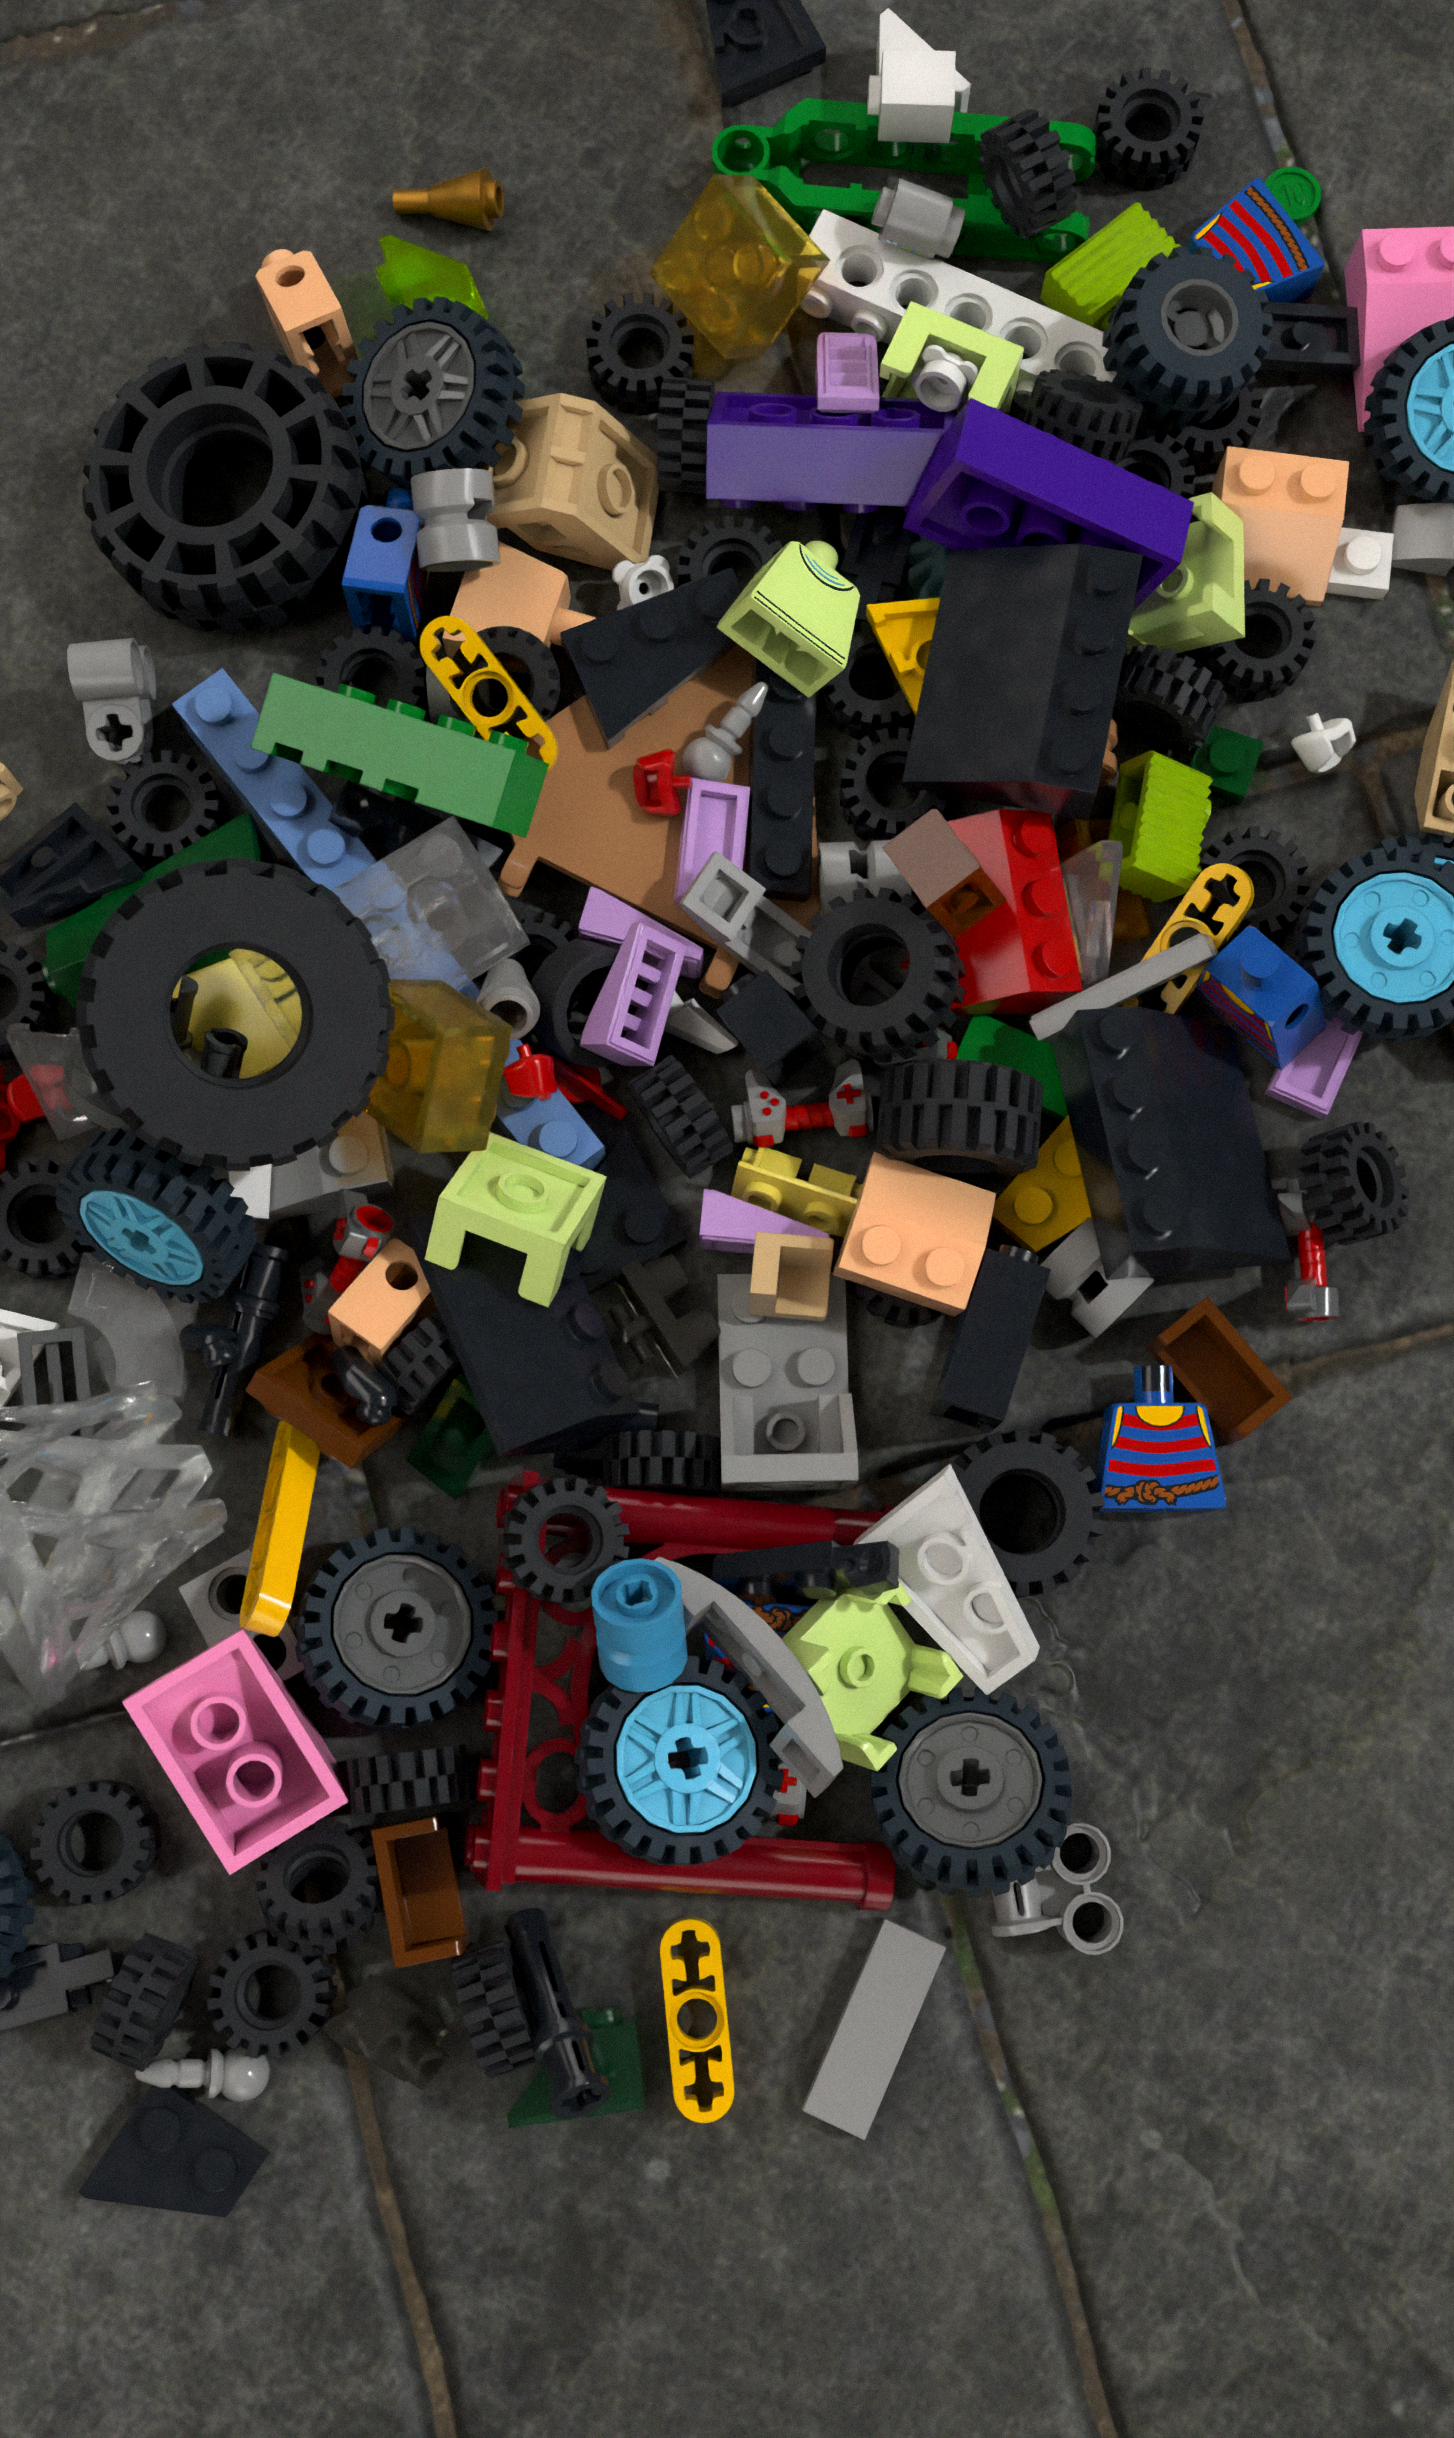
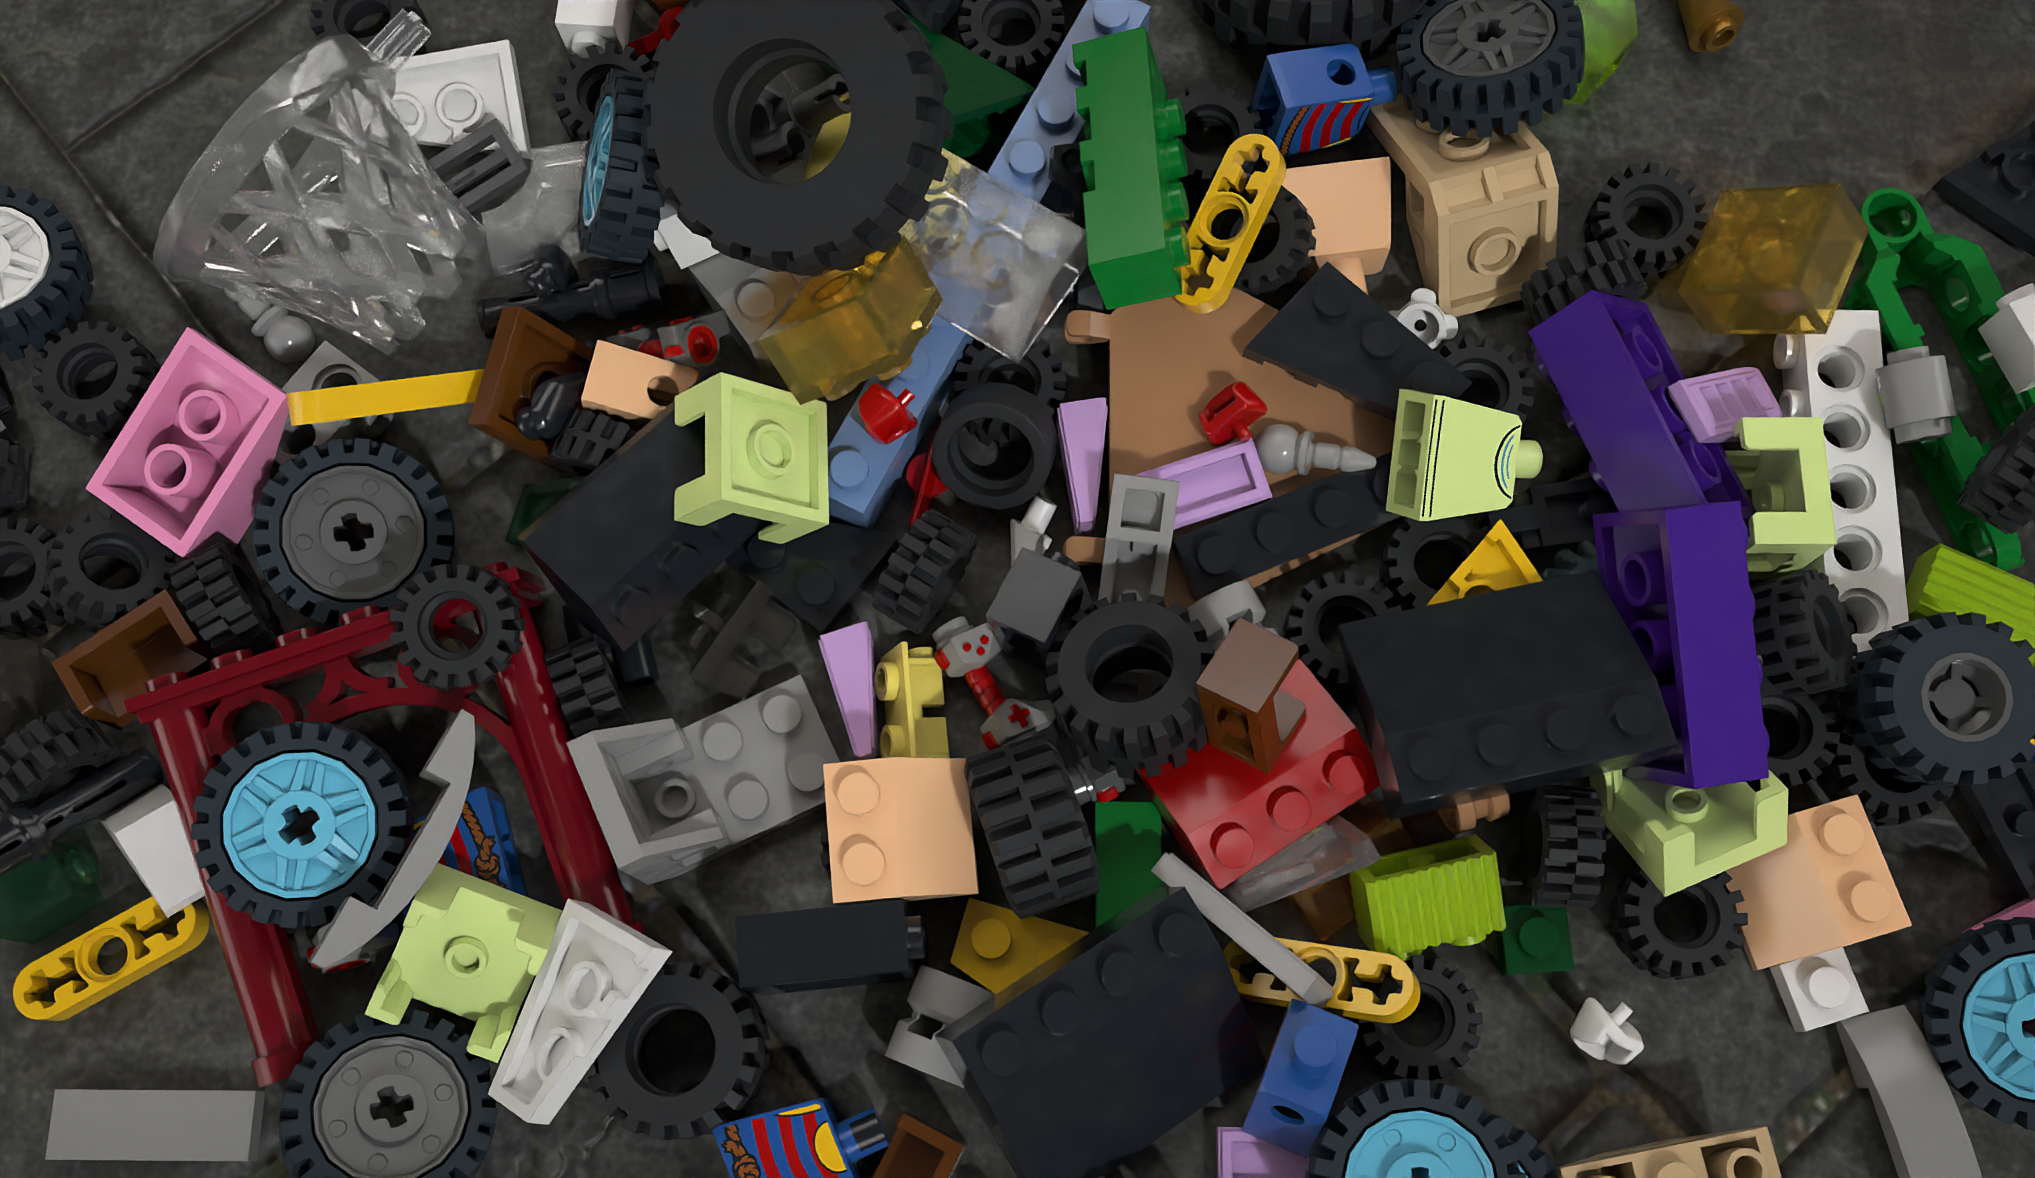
camera: 70 degrees right, 5 degrees down
(455, 520) = (1379, 120): light grey wheel -> none
(510, 997) = (951, 365): light grey cone -> none
(610, 1010) = (997, 503): lavender slope -> none
(615, 1928) = (156, 847): none -> white slope
(639, 1625) = (397, 723): dark azure wheel -> none
(791, 1276) = (812, 732): tan panel -> none
(807, 1570) = (529, 873): black hinge -> none
(943, 379) = (1763, 485): white plate -> none

